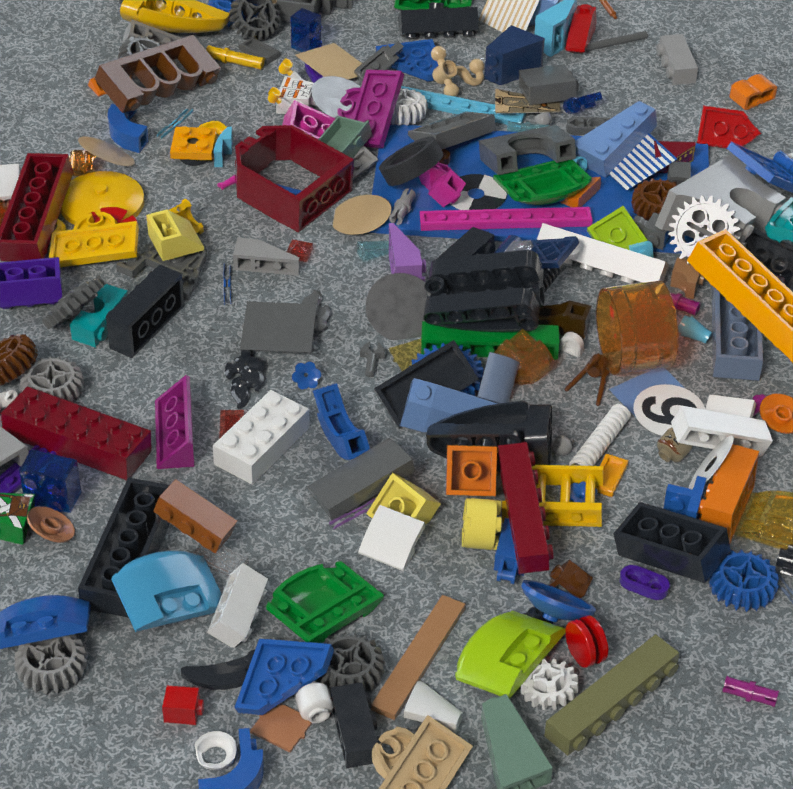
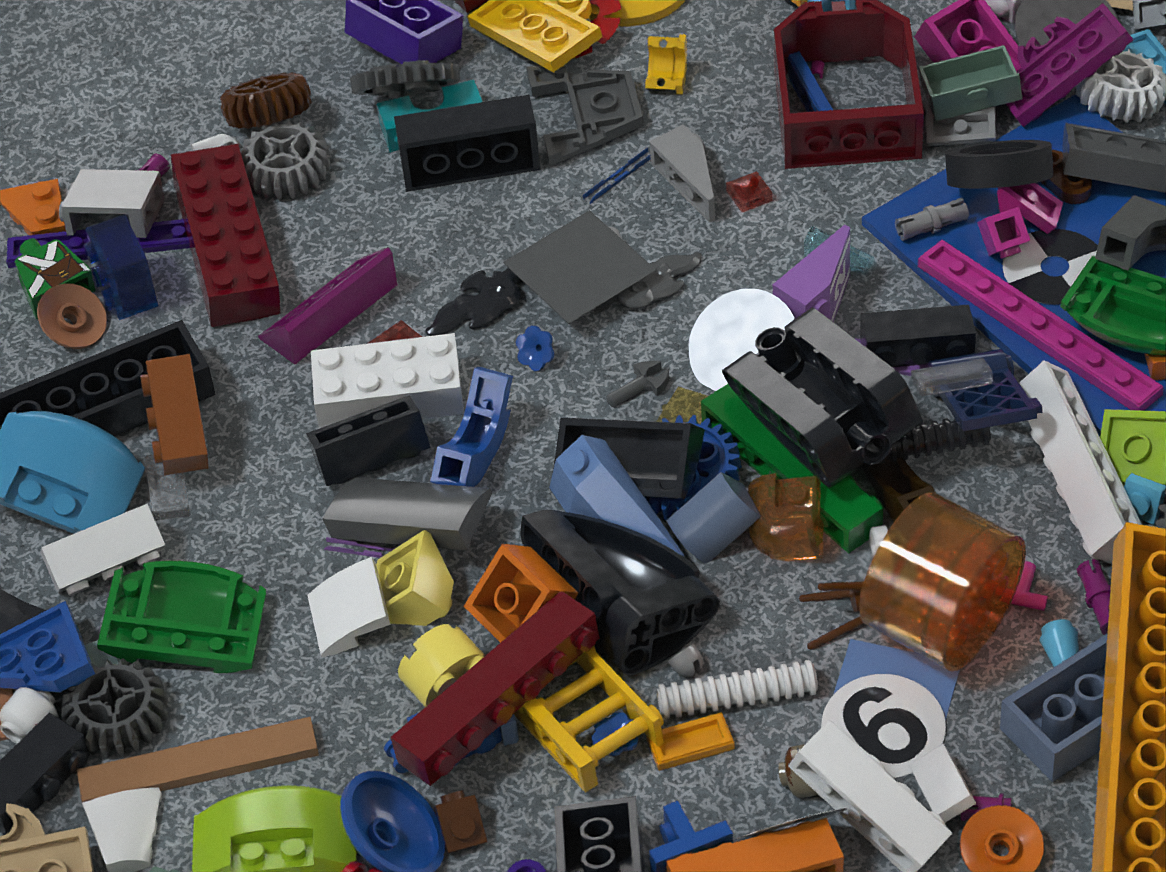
camera: 55 degrees right, 5 degrees up
(172, 235) = (613, 70): light yellow slope -> none
(294, 464) = (368, 441): none -> black brick
(361, 214) = (880, 196): tan sticker -> none

